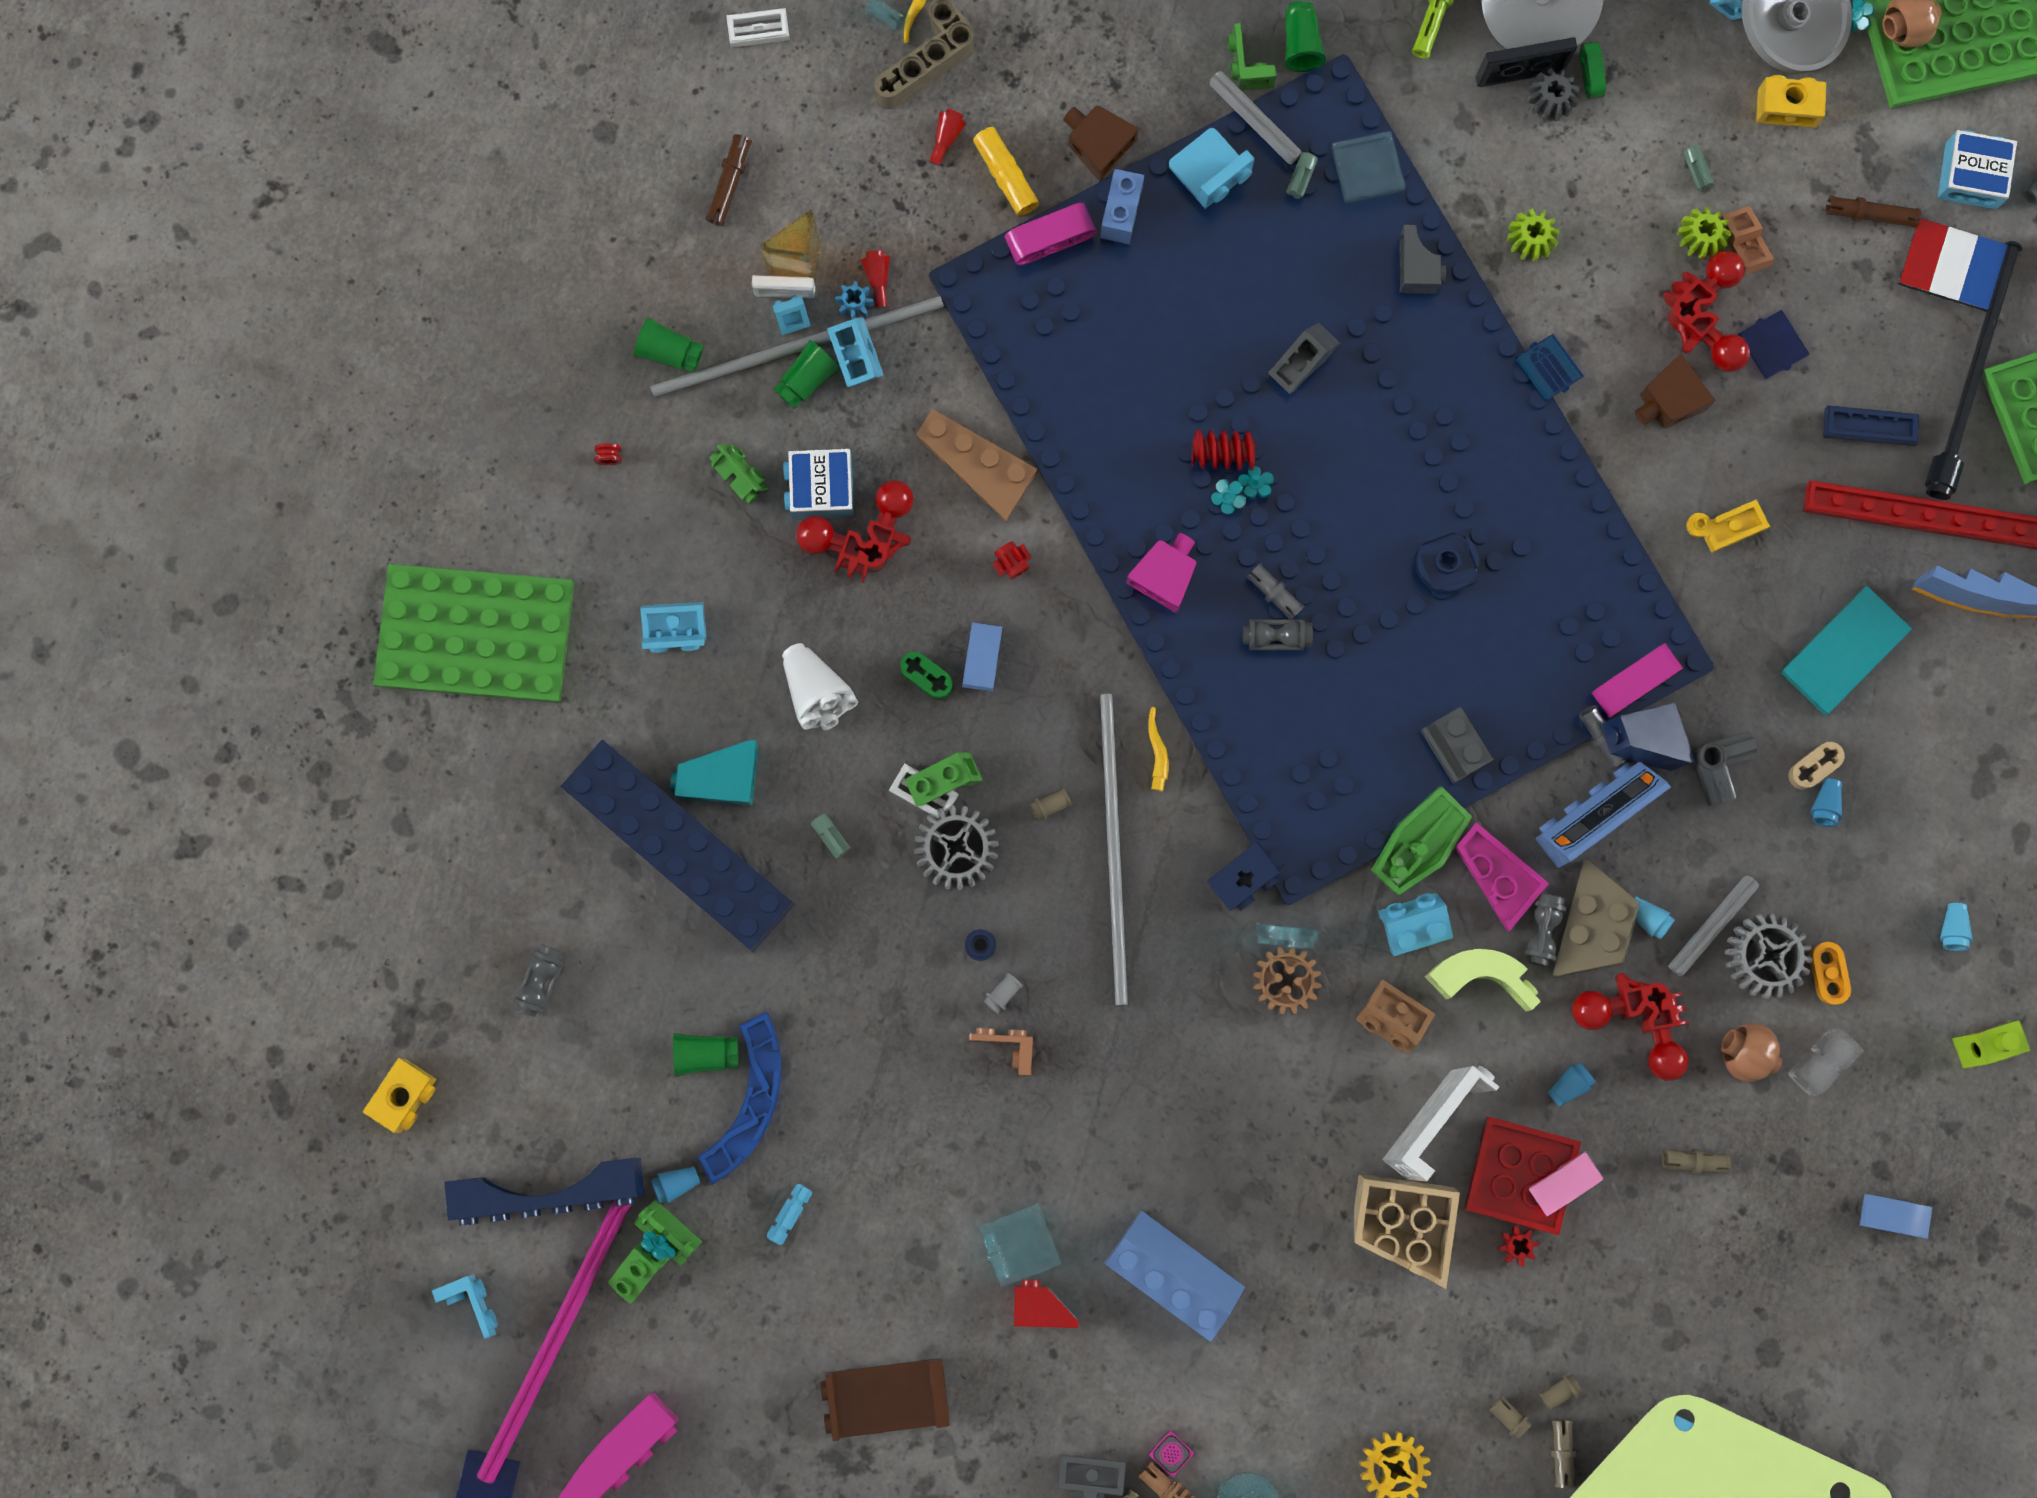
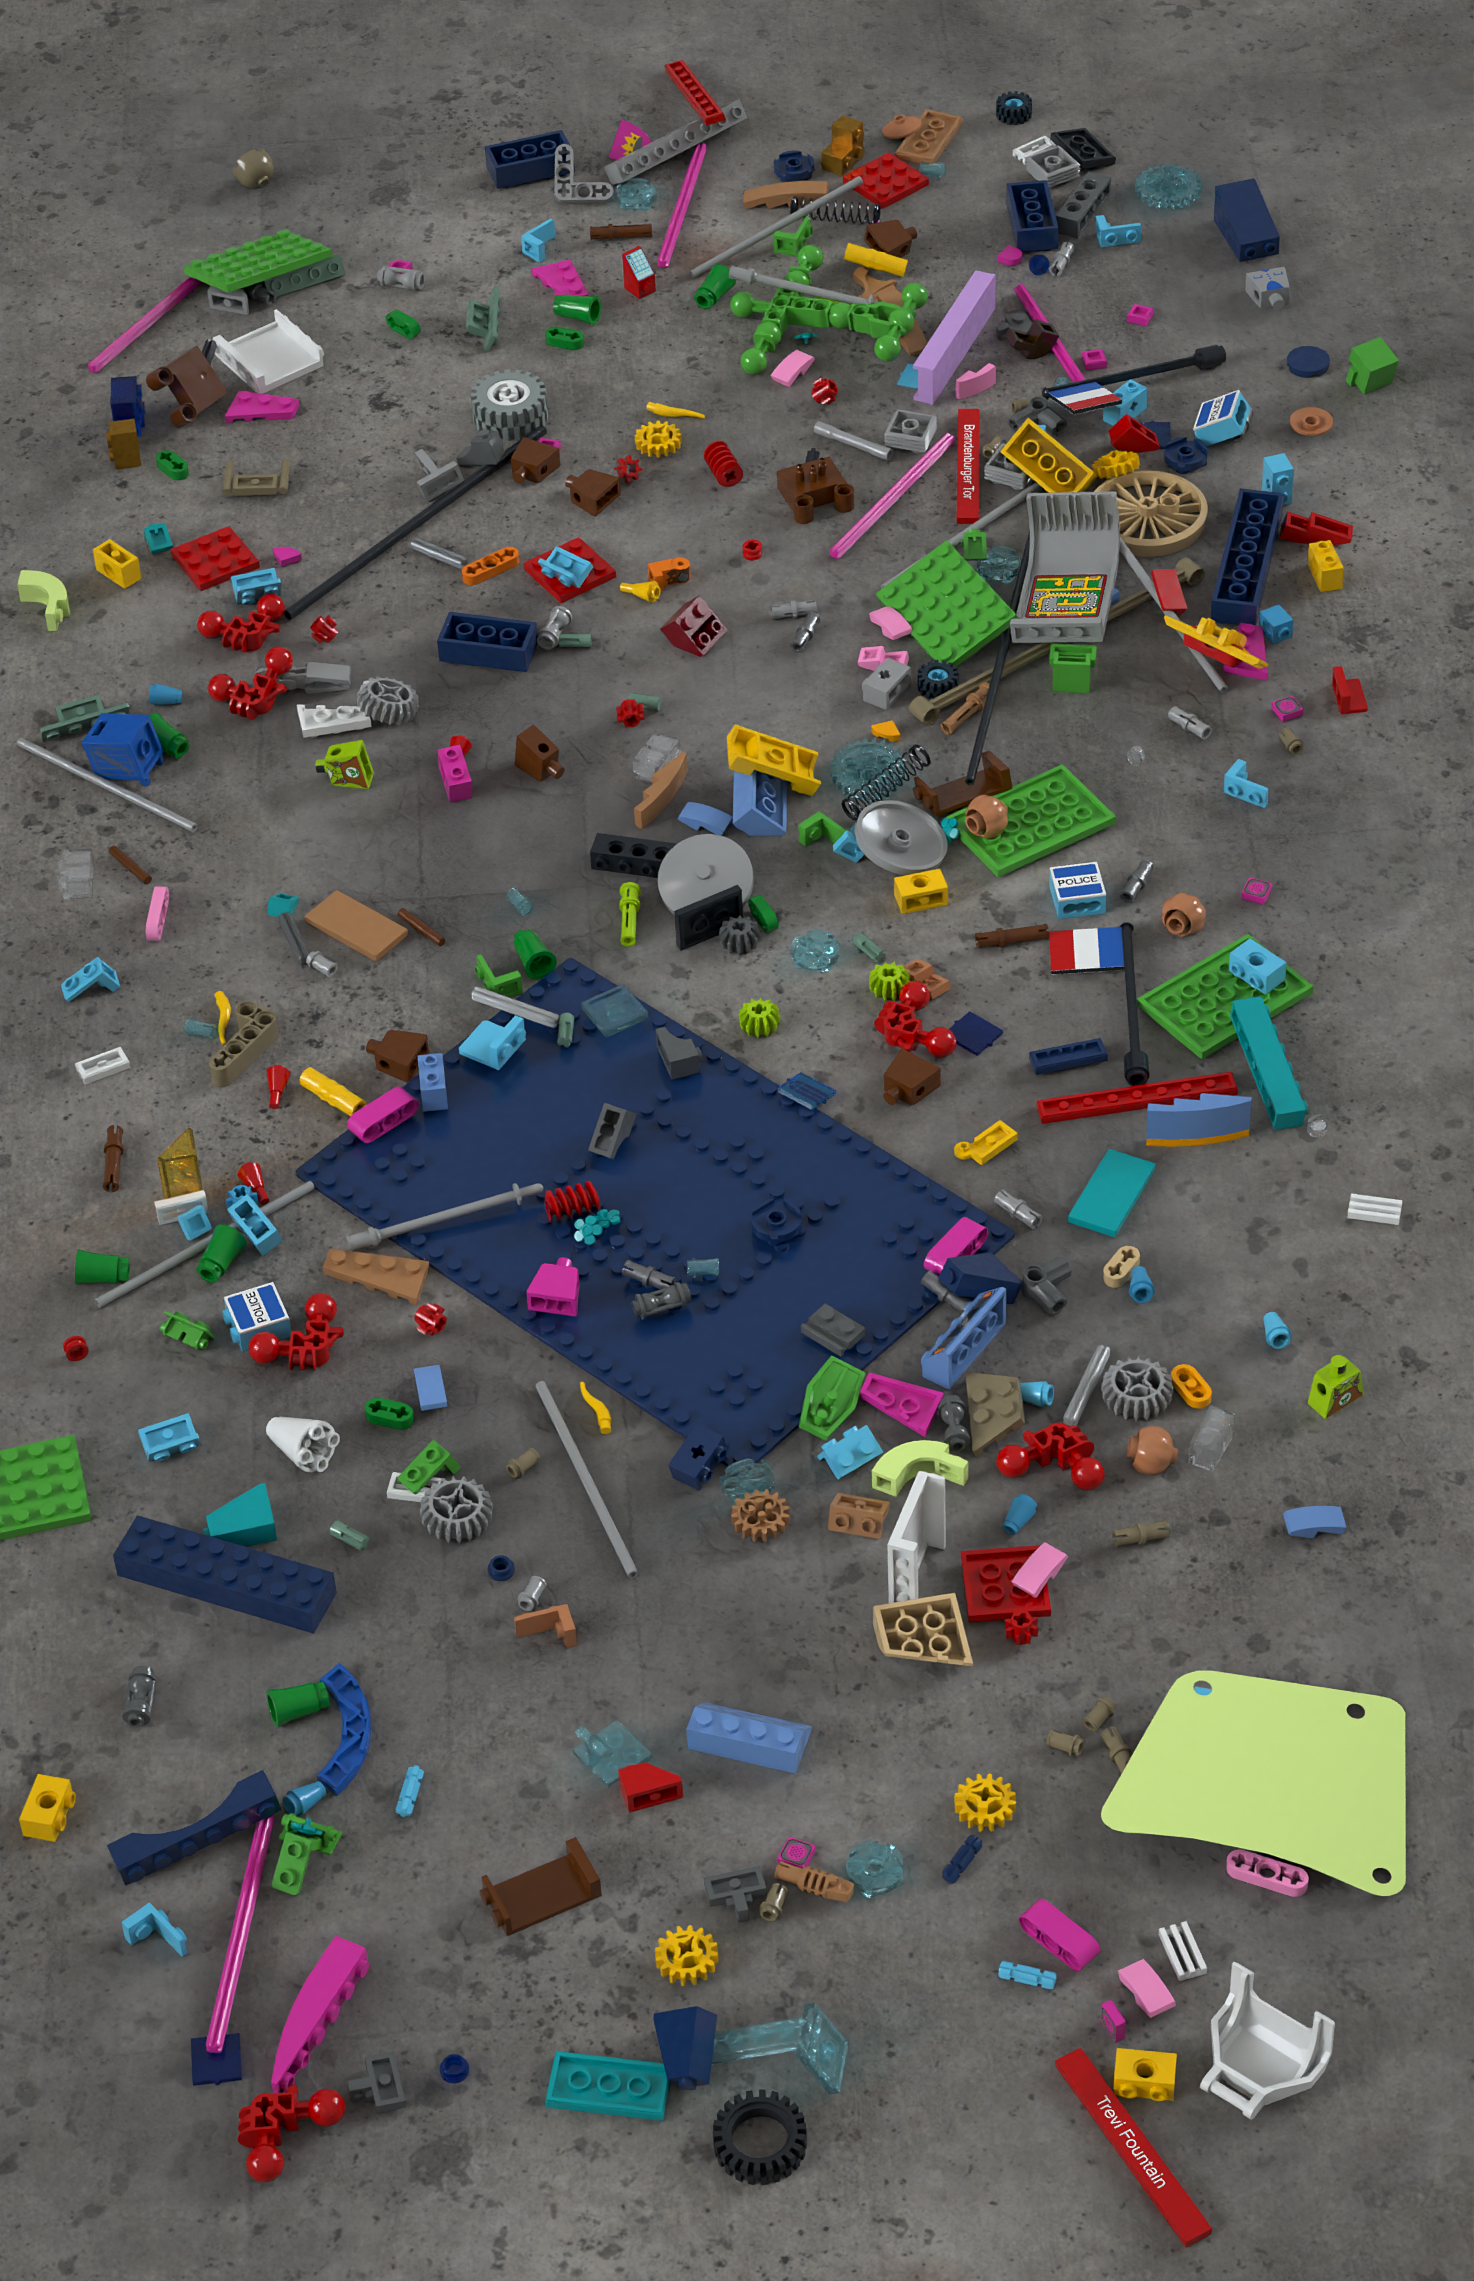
camera: 15 degrees left, 35 degrees down
(987, 412) = (374, 1236): none -> light grey bar
(1340, 600) = (702, 1267): none -> clear light blue pin
(1635, 167) = (822, 960): none -> clear light blue plate
(1729, 637) = (1018, 1209): none -> light grey pin

